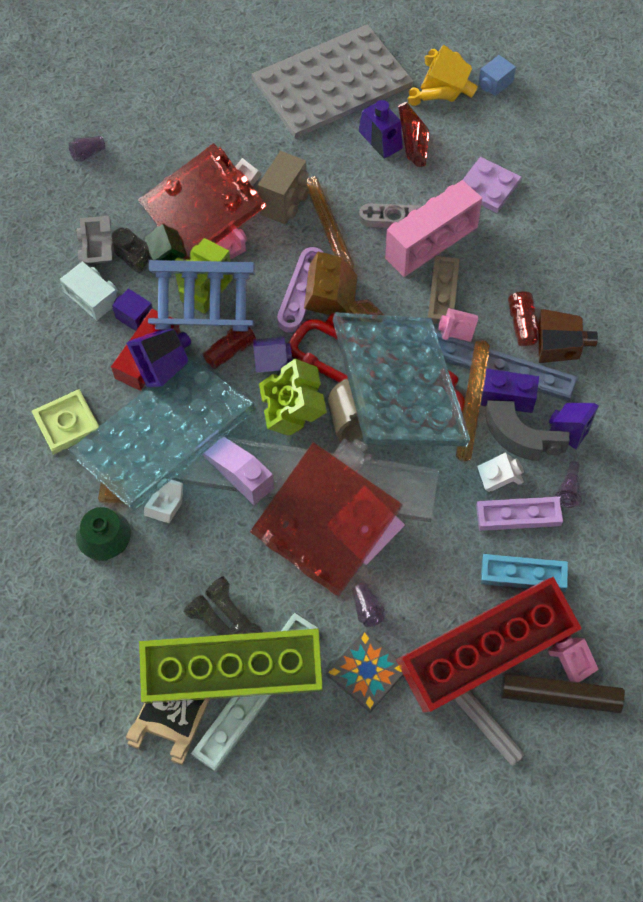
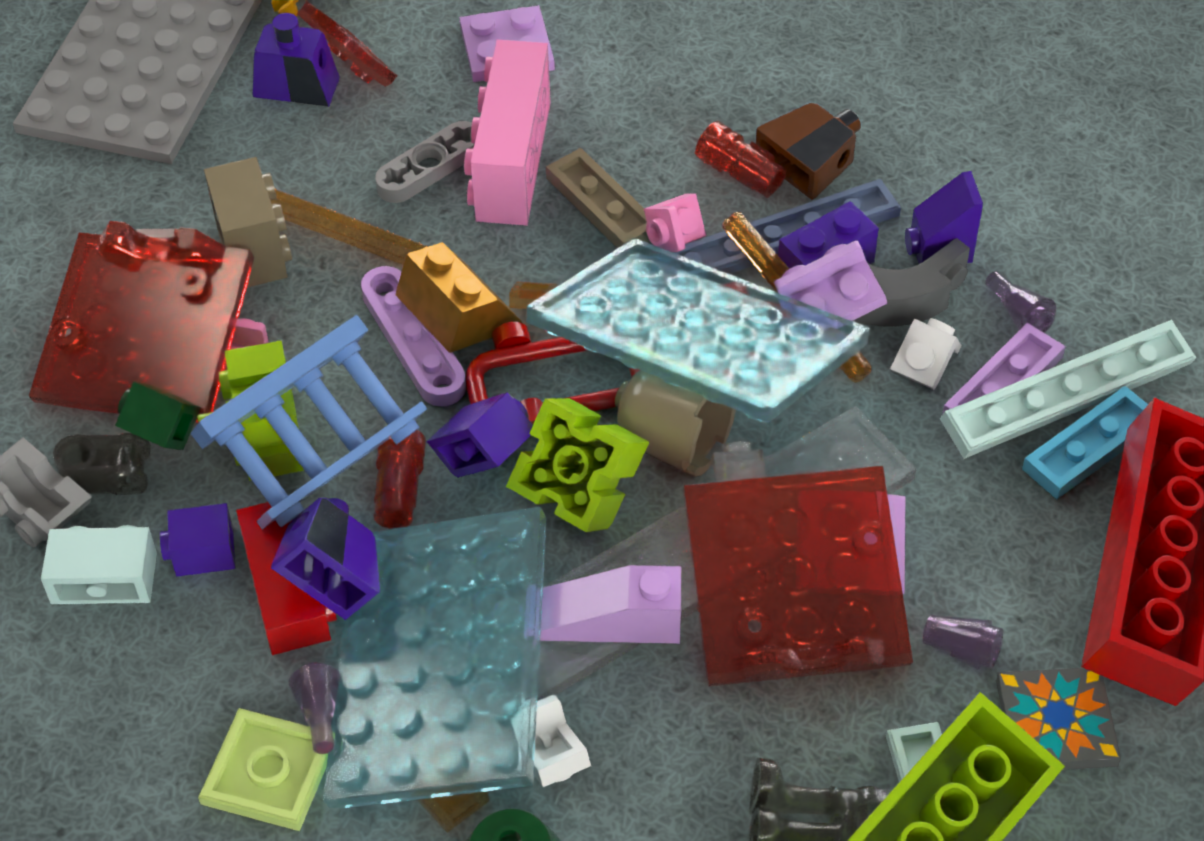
camera: 45 degrees left, 10 degrees down
(107, 407) = (316, 693): none -> clear purple cone
(483, 409) = (835, 283): none -> lavender bracket
(542, 541) = (1066, 389): none -> light aqua tile

